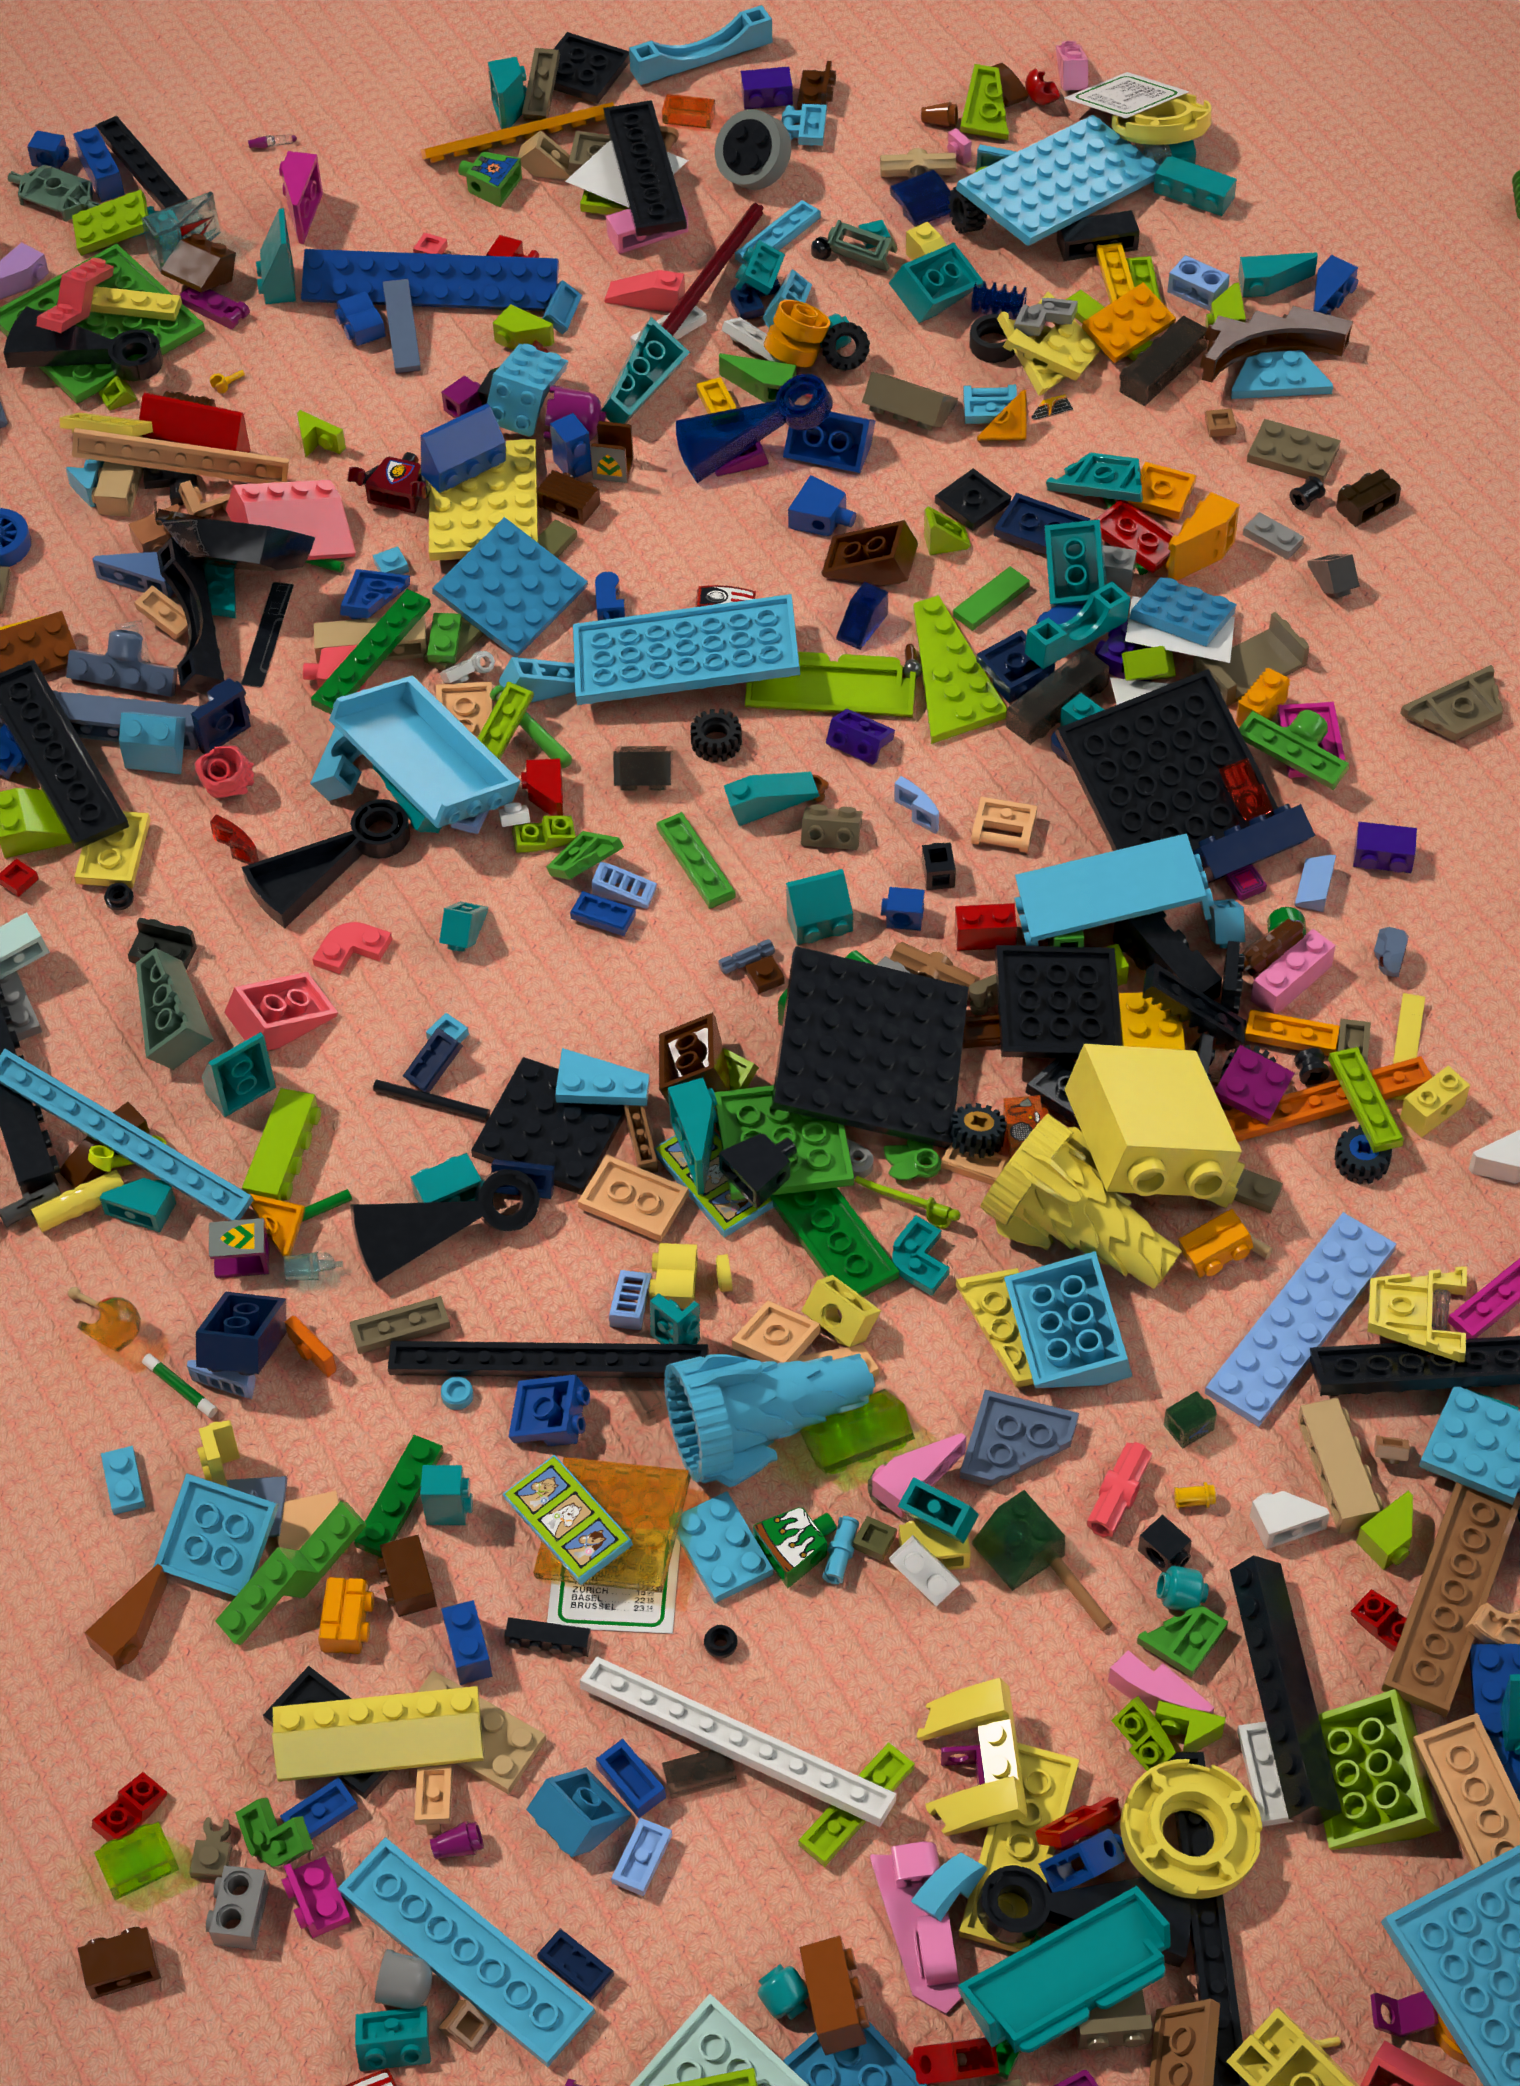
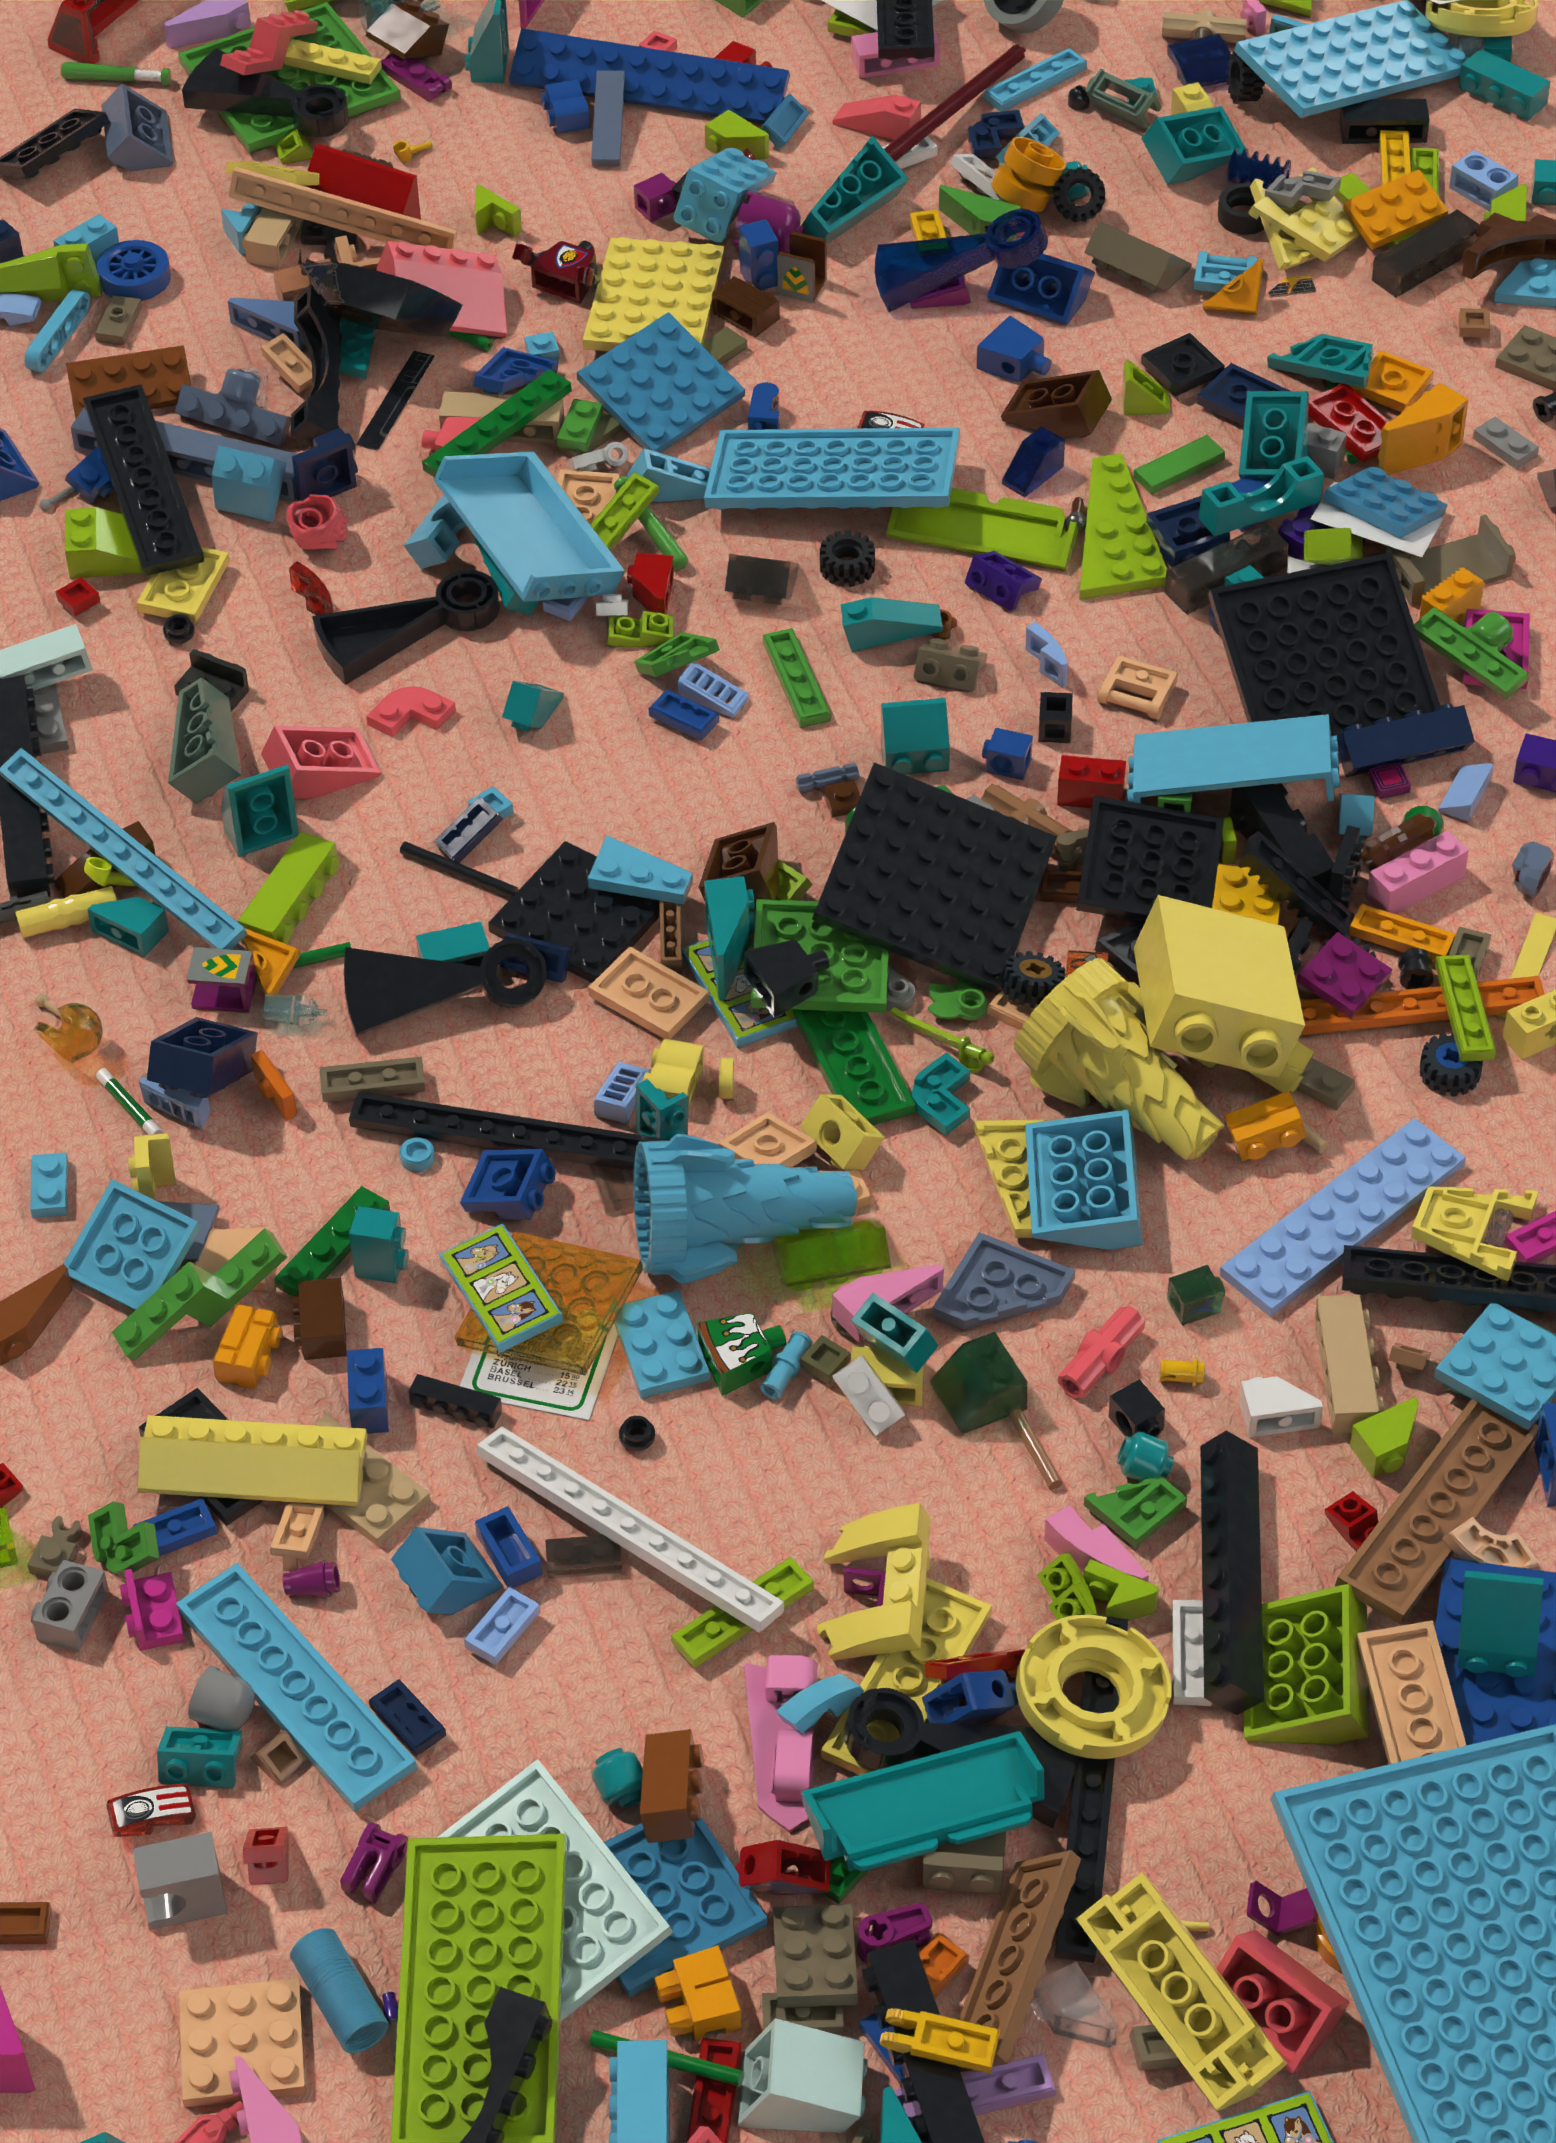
camera: 10 degrees right, 5 degrees down
(462, 448) = (639, 239): blue slope -> none
(760, 267) = (1006, 105): teal bracket -> none
(1244, 789) = (1406, 683): clear red slope -> none

